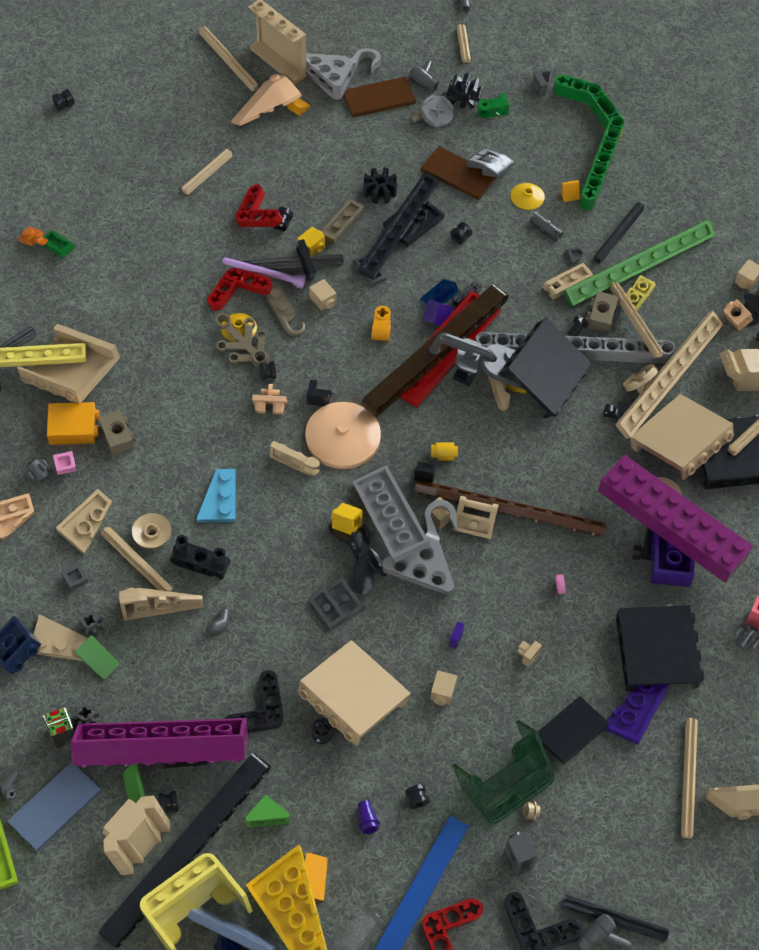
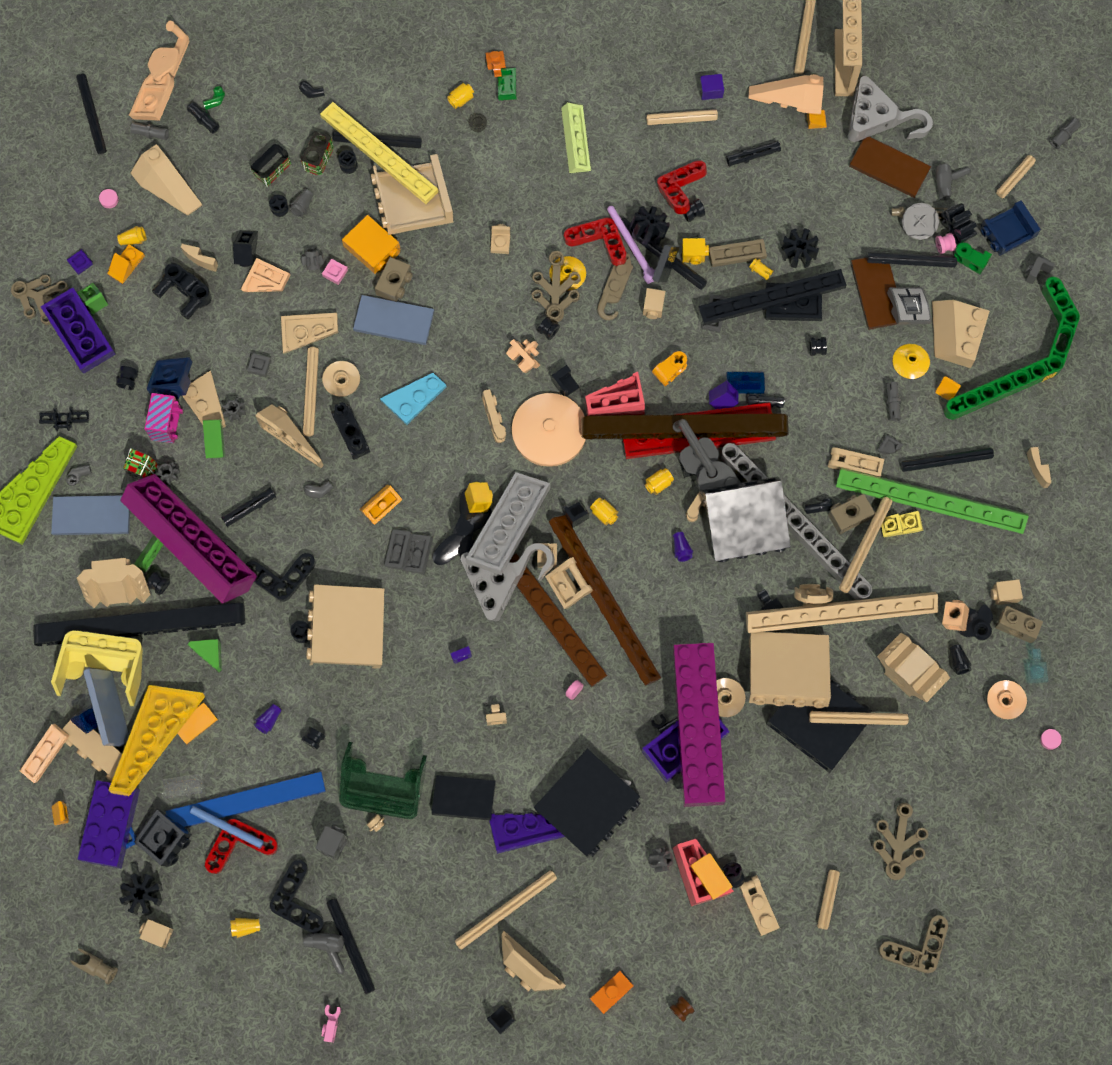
camera: 50 degrees right, 15 degrees up
(30, 277) = (460, 95): none -> yellow brick
(41, 676) = (163, 418): none -> dark pink container
(62, 285) = (477, 122): none -> clear smoke tile
(145, 241) = (575, 138): none -> yellowish green slope
(145, 460) = (393, 320): none -> sand blue tile
(165, 343) = (500, 239): none -> tan bracket
(185, 660) = (230, 518): none -> black pin
(209, 136) = (712, 86): none -> dark purple panel
(264, 249) = (649, 225): none -> black gear
(273, 168) = (733, 159): none -> black pin
(278, 590) = (381, 504): none -> light orange slope
(370, 218) = (761, 269): none -> yellow pin
(372, 369) = (617, 400): none -> coral wedge
(429, 925) = (227, 827): none -> medium blue bar
(443, 688) = (410, 683): tan brick -> none
(457, 400) = (659, 481): none -> yellow brick
(458, 136) = (911, 259): none -> black axle
(467, 111) = (945, 243): none -> bright pink wheel
(497, 72) = (1010, 229): none -> dark blue panel
(504, 555) = (559, 627): none -> reddish brown plate
(521, 428) = (682, 549): none -> dark purple cone
(537, 153) = (957, 331): none -> tan wedge
(680, 191) = (1040, 471): none -> tan slope

